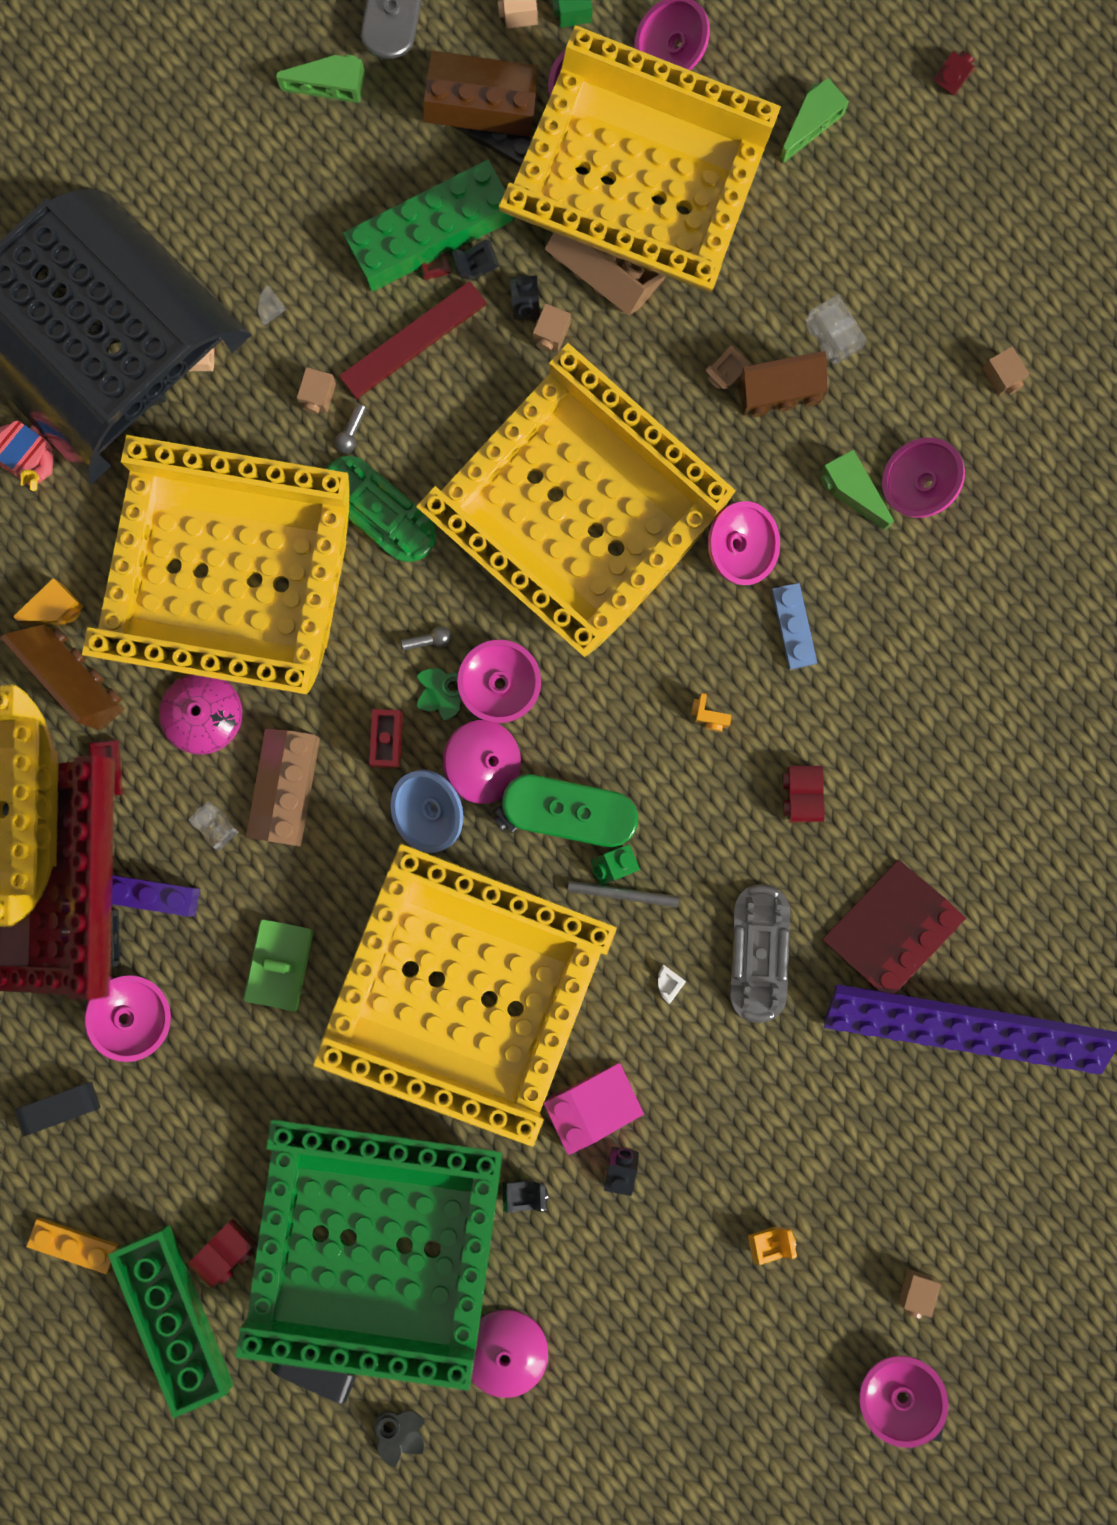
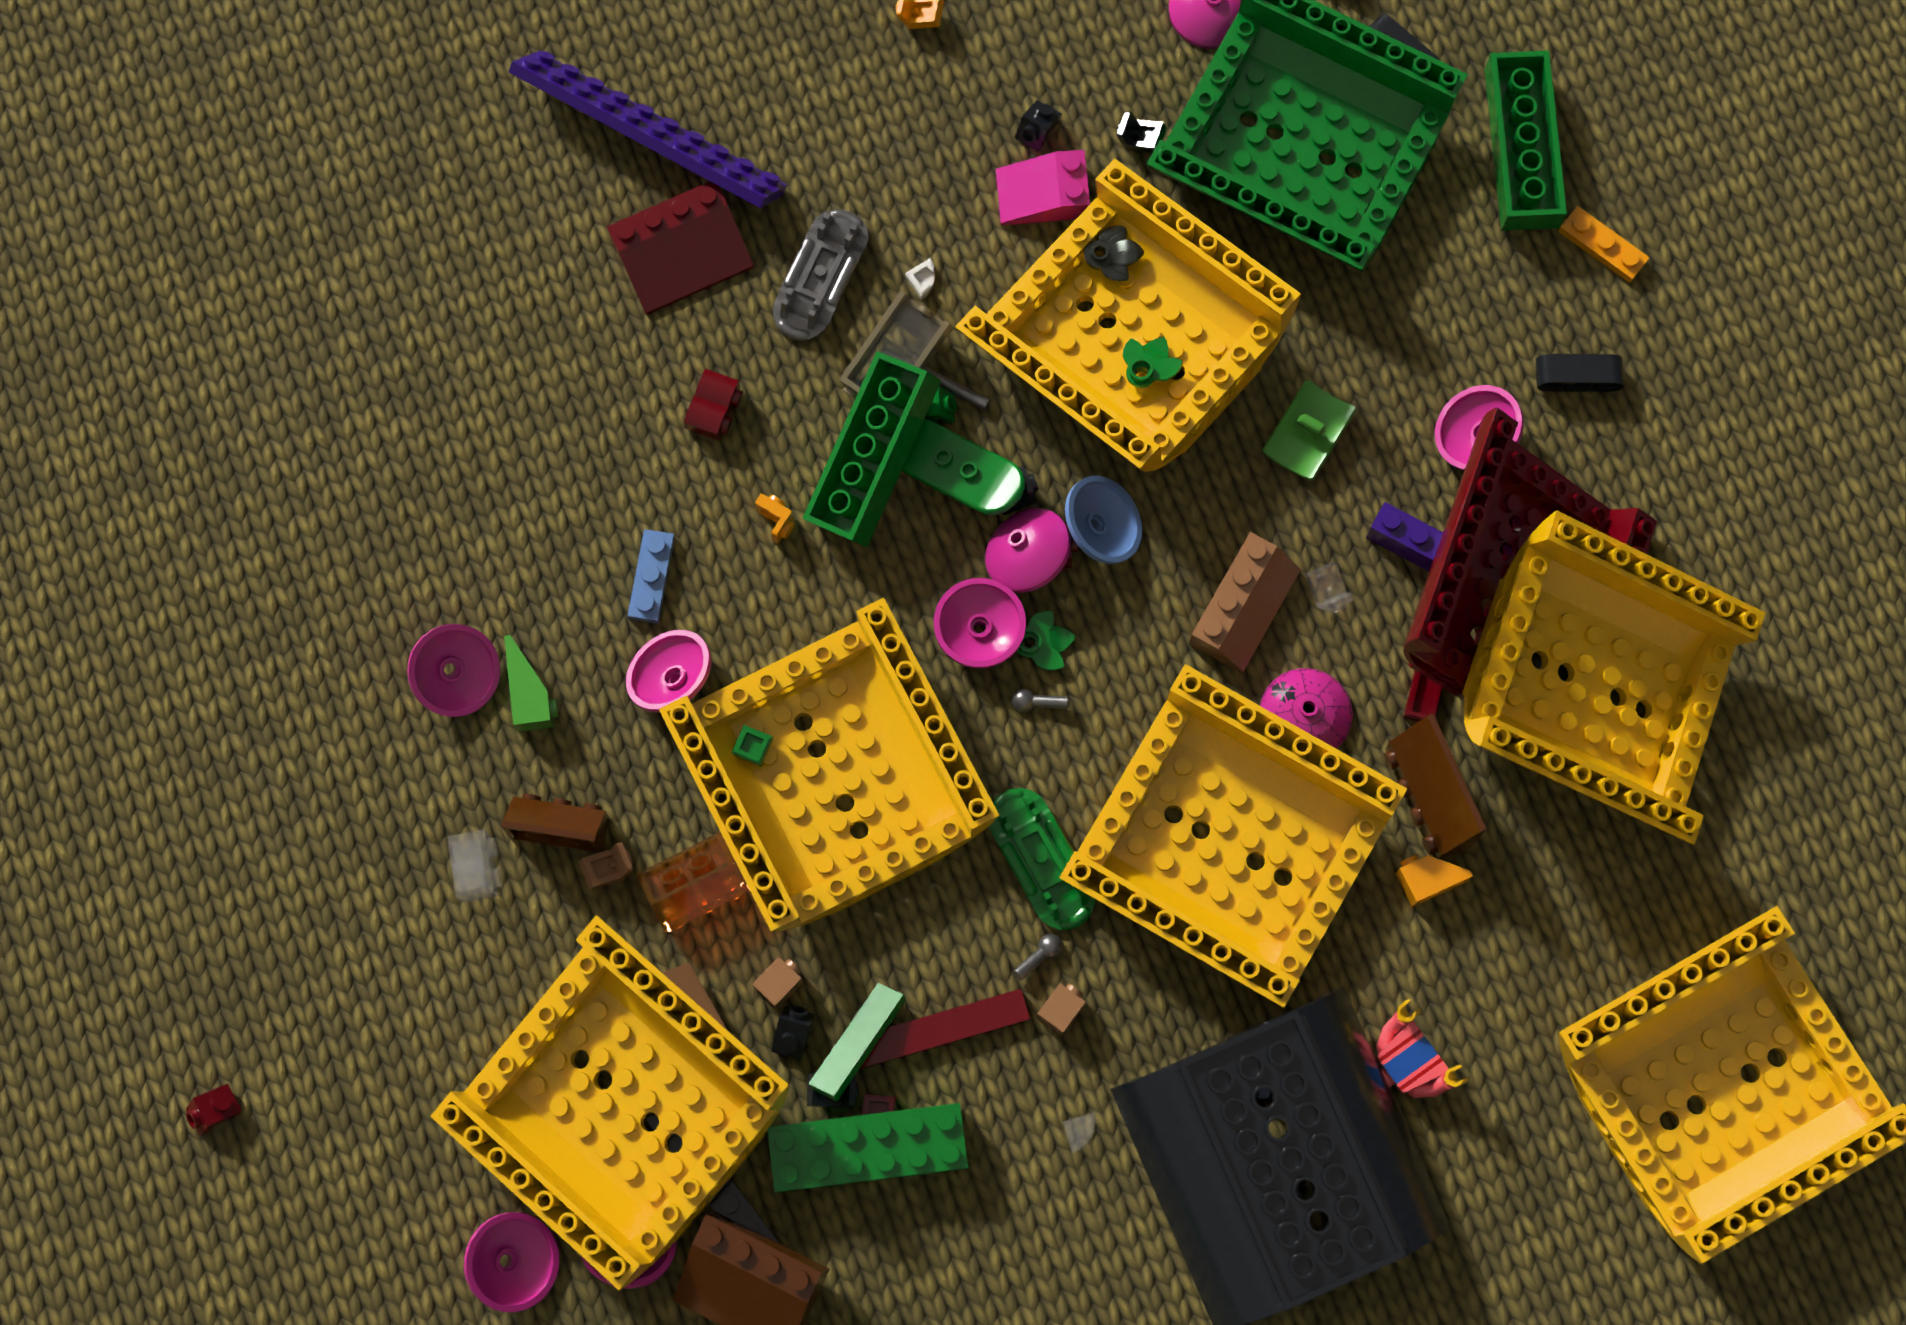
camera: 160 degrees left, 10 degrees down
(221, 1253) = (1455, 184): dark red brick -> none
(386, 739) = (1118, 608): dark red brick -> none
(434, 969) = (1149, 359): none -> green plate
(469, 301) = (857, 1042): none -> tile
(500, 1063) = (1118, 253): none -> pearl dark grey plate
(648, 795) = (872, 448): none -> green brick
(649, 507) = (752, 745): none -> green tile
(659, 376) = (692, 882): none -> clear orange slope
(663, 896) = (903, 332): none -> door
(819, 111) = (390, 1116): bright green slope -> none
(1006, 372) = (314, 753): medium nougat brick -> none

